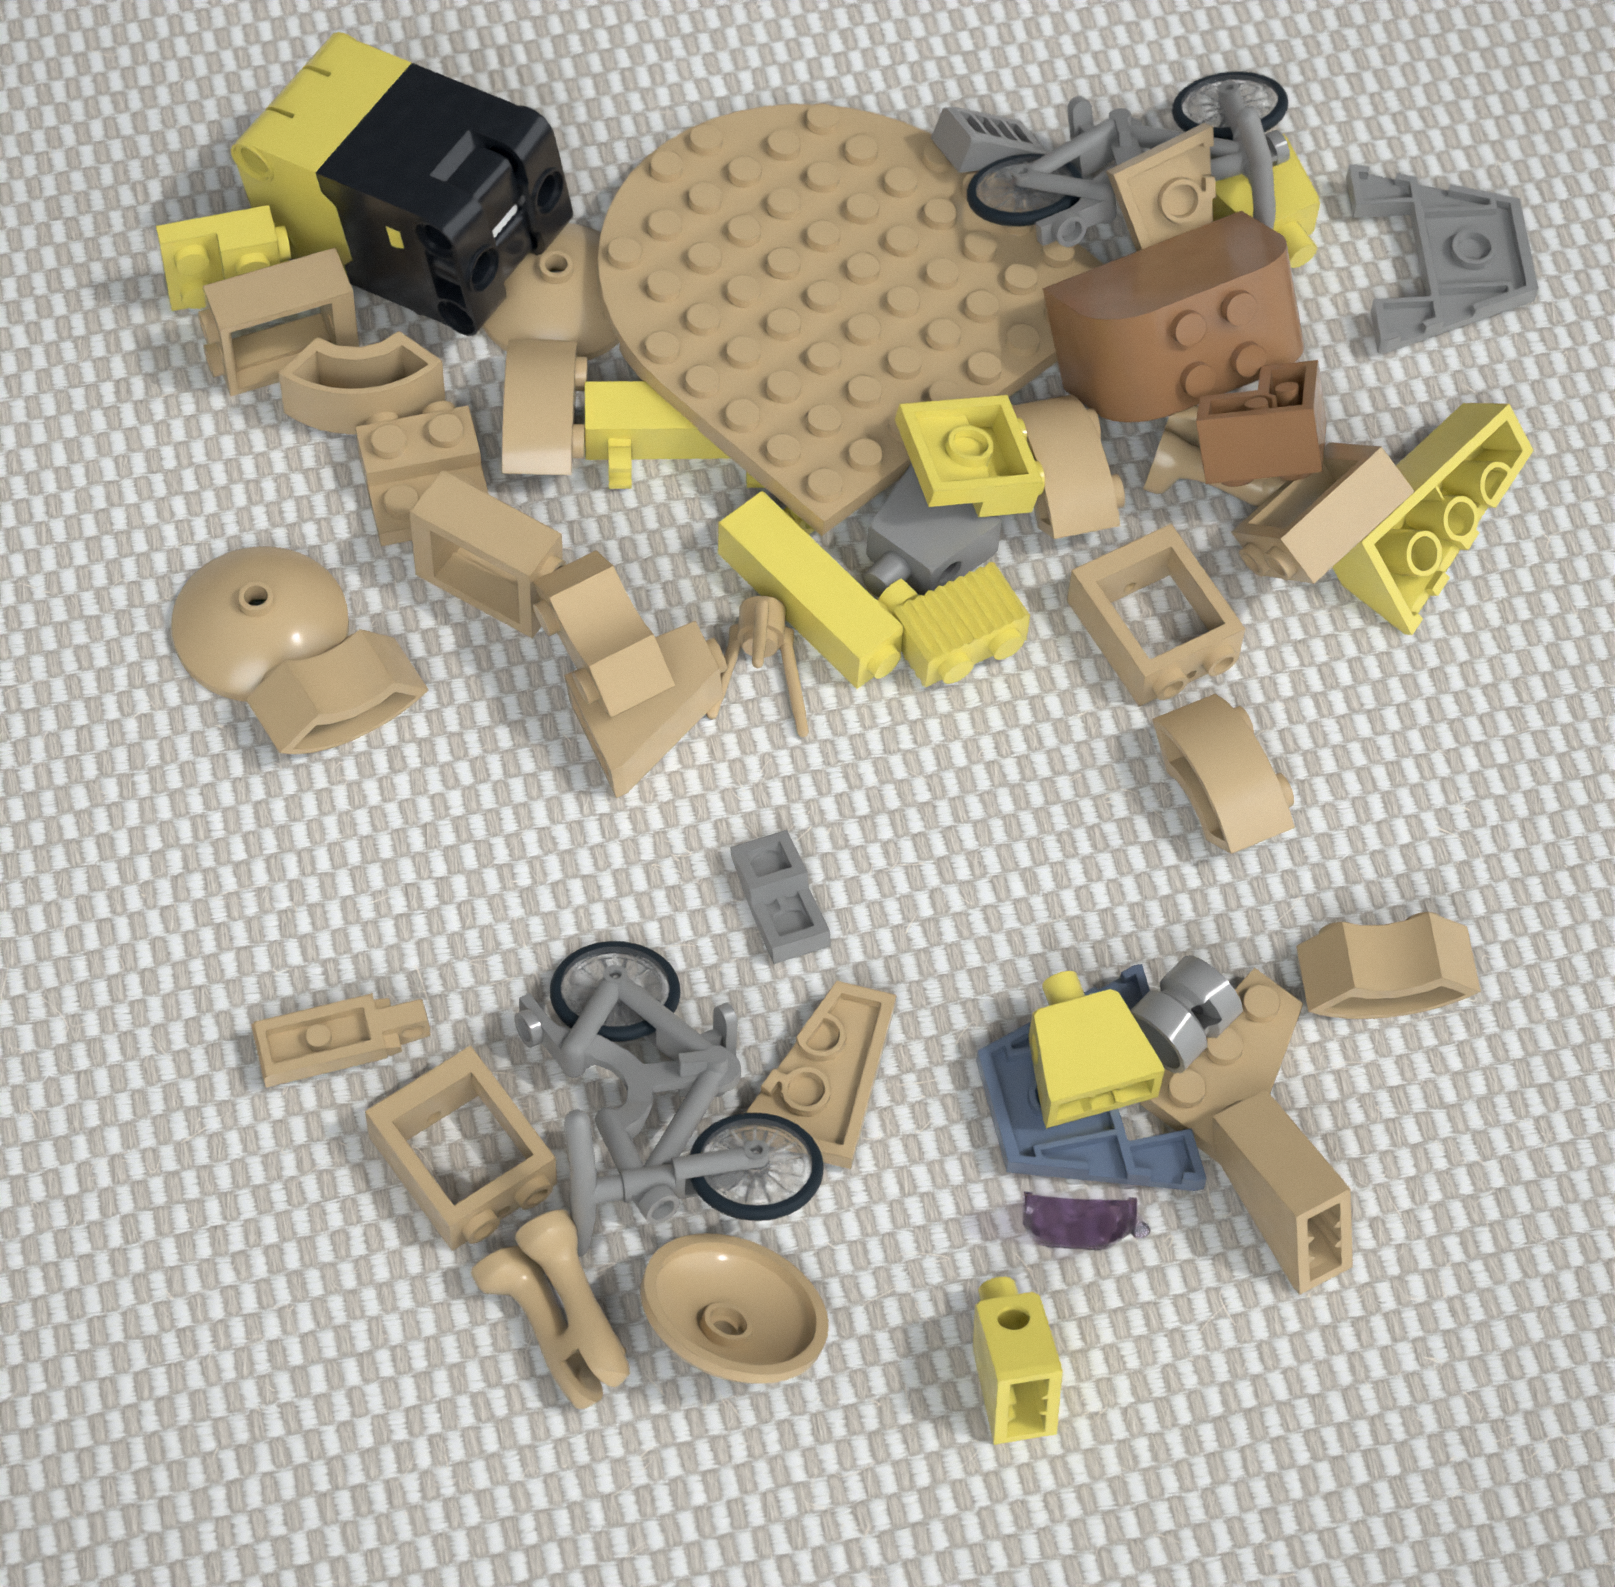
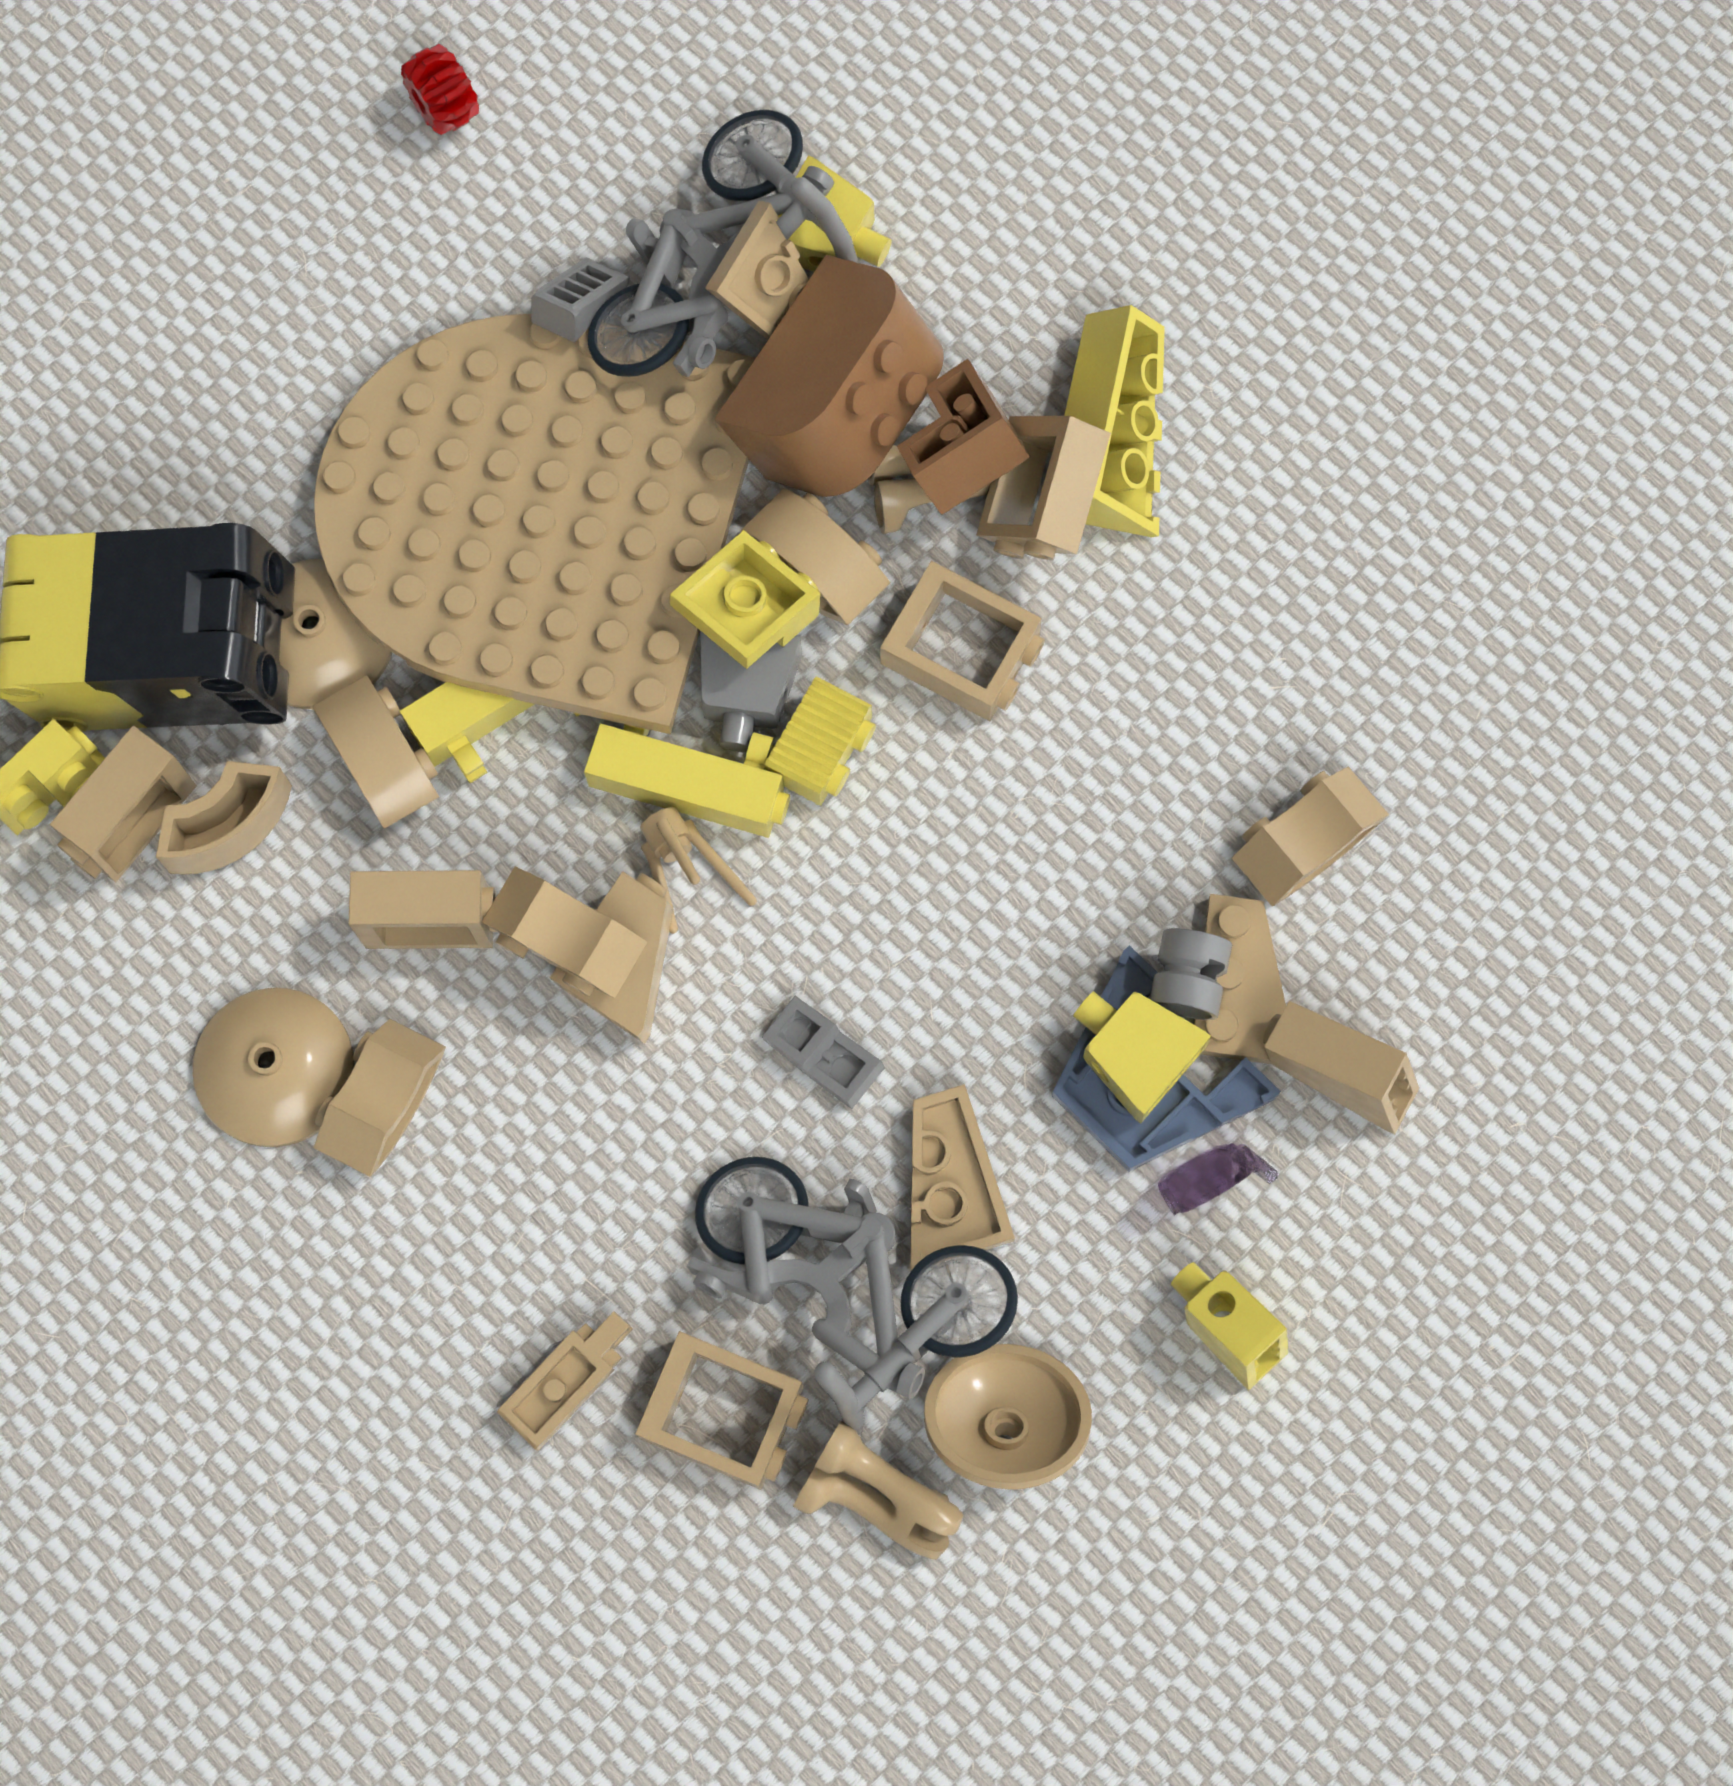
camera: 25 degrees left, 15 degrees up
(407, 455) = (311, 859): tan plate -> none
(1224, 773) = (1096, 747): tan brick -> none
(1468, 252) = (1006, 170): light grey wing -> none

